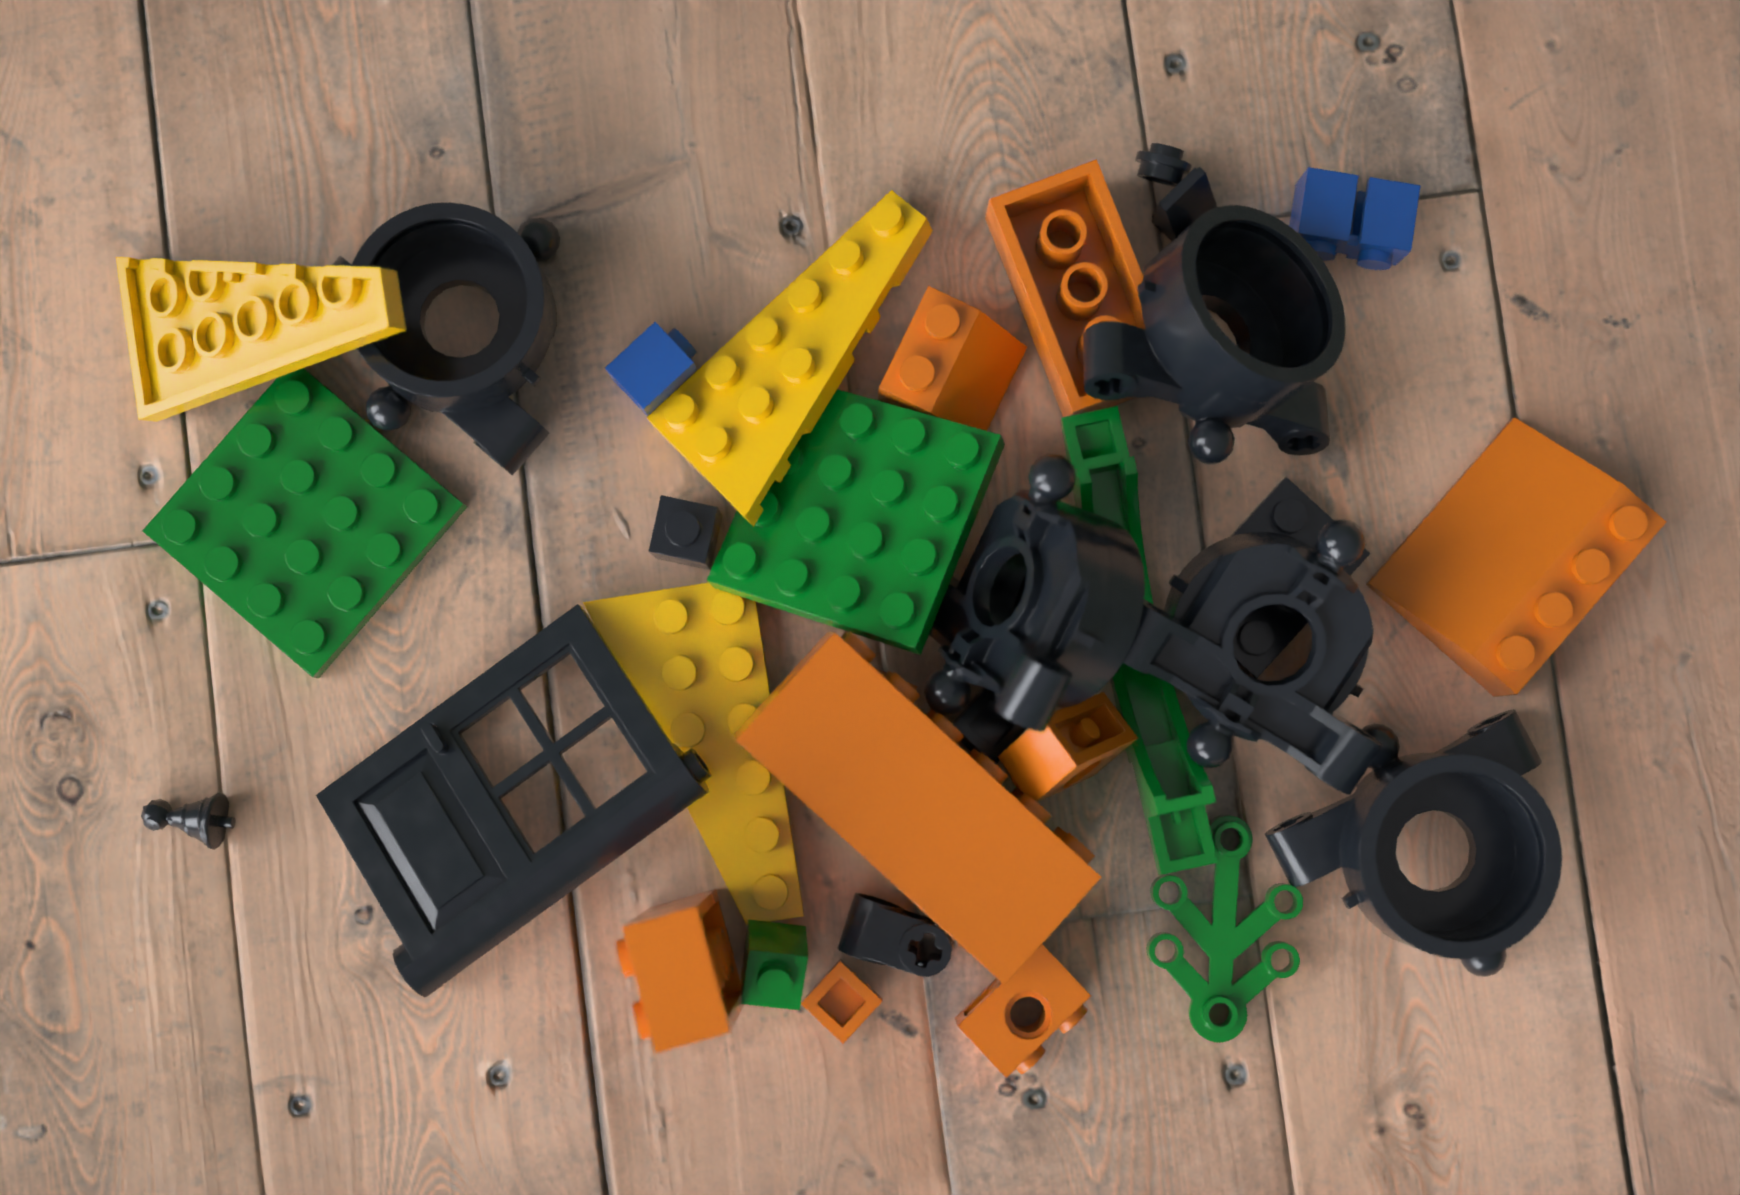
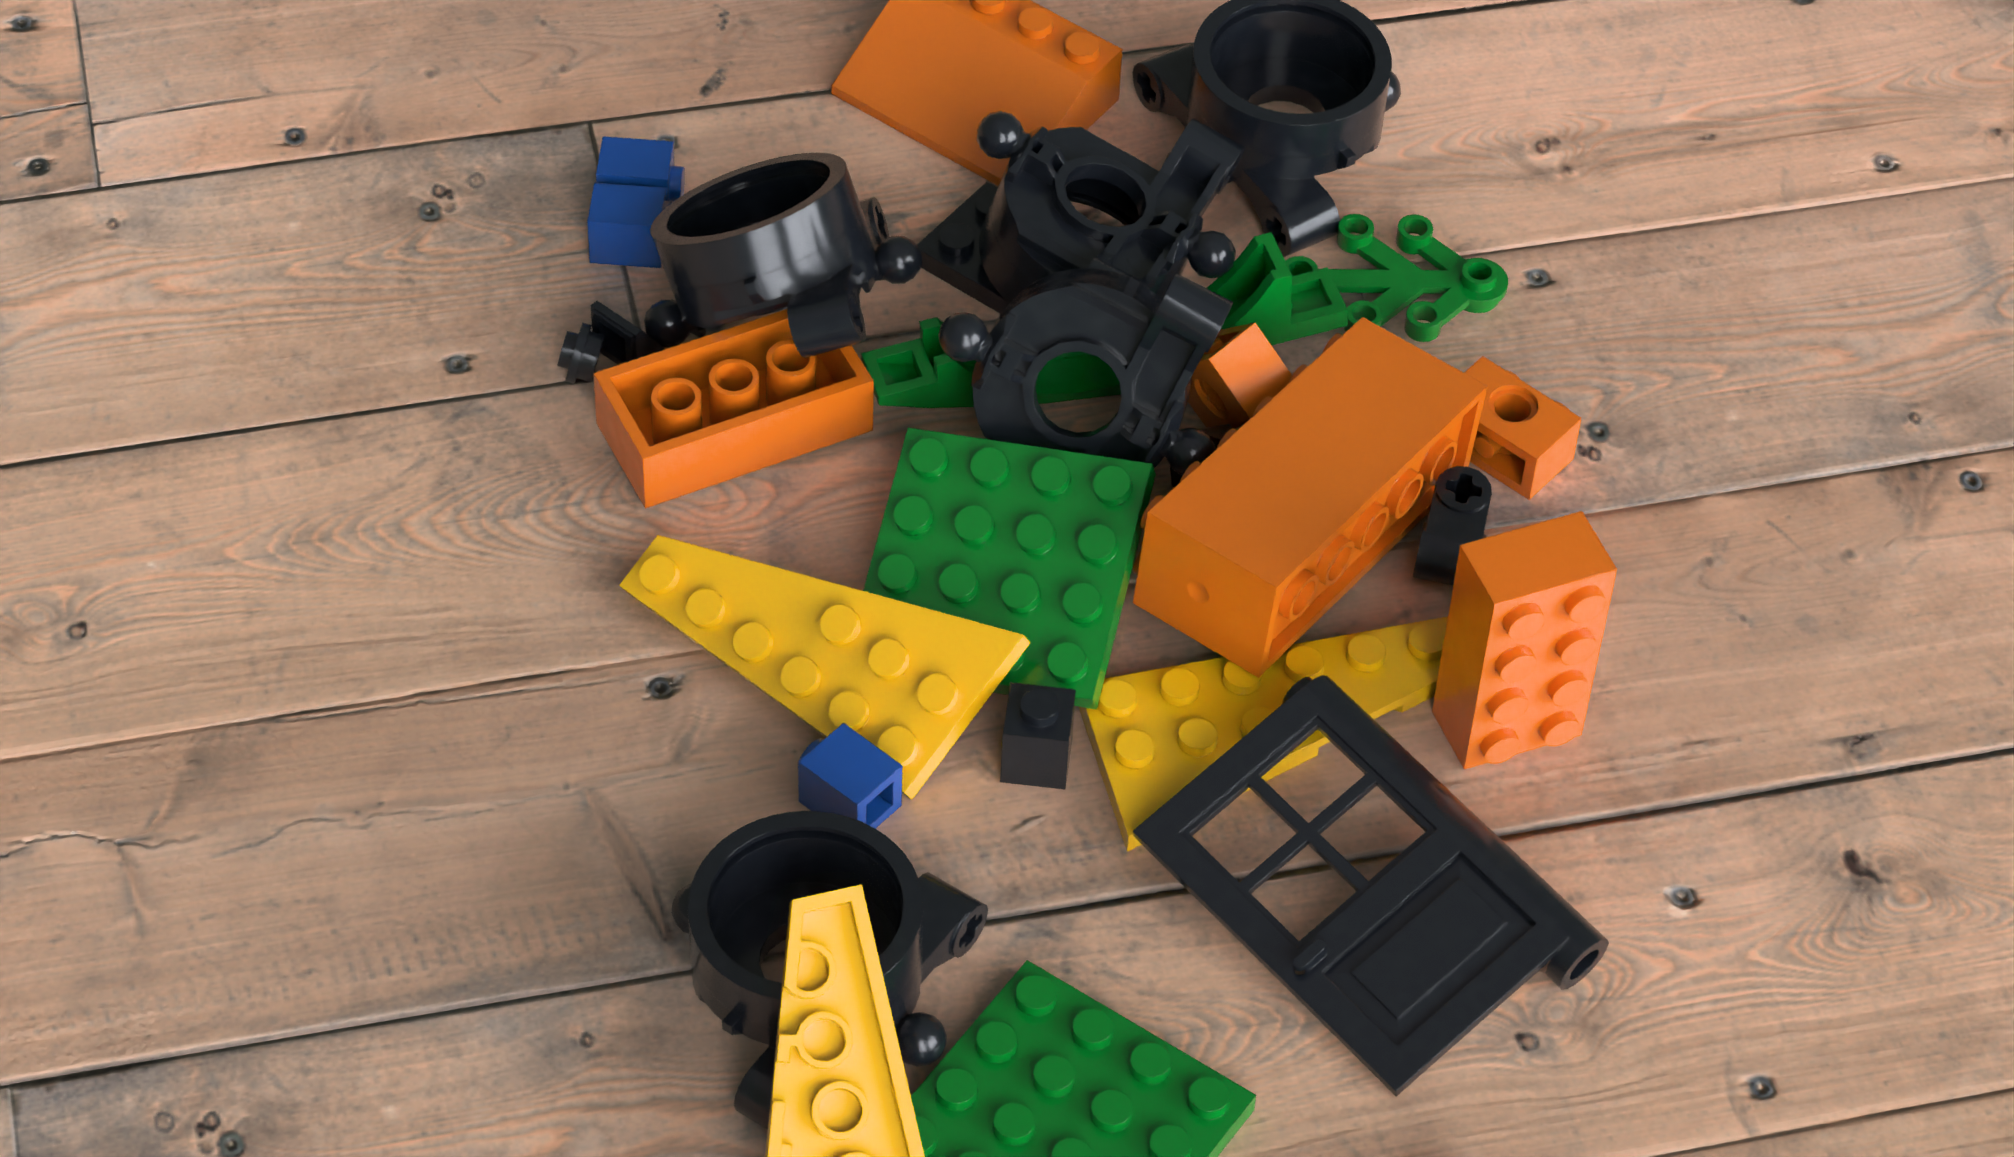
camera: 95 degrees left, 35 degrees down
(952, 363) = (812, 525): orange slope -> none

